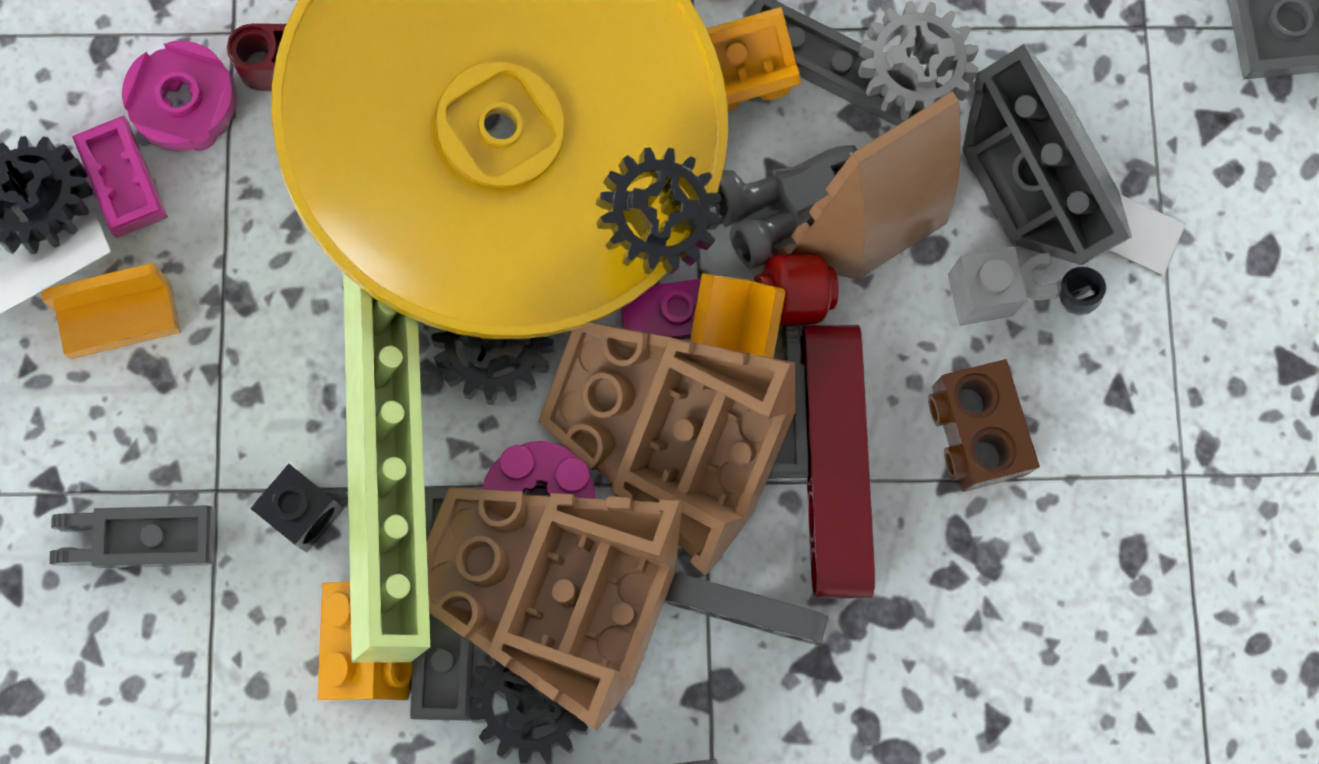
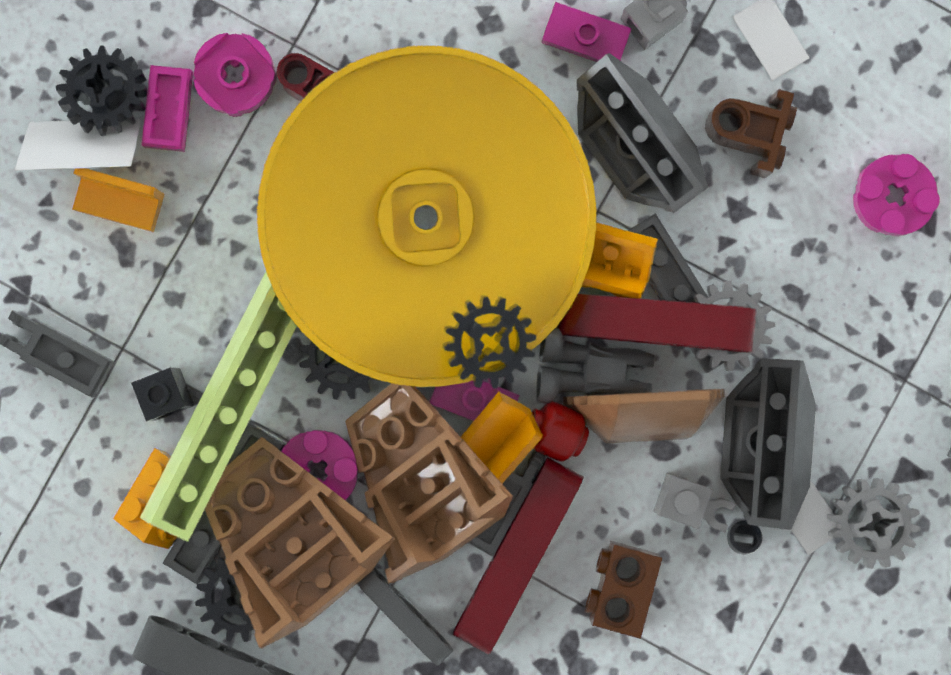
camera: 40 degrees right, 10 degrees up
(842, 90) = (661, 322): none -> dark red beam
(1236, 207) = (880, 539): none -> light grey gear

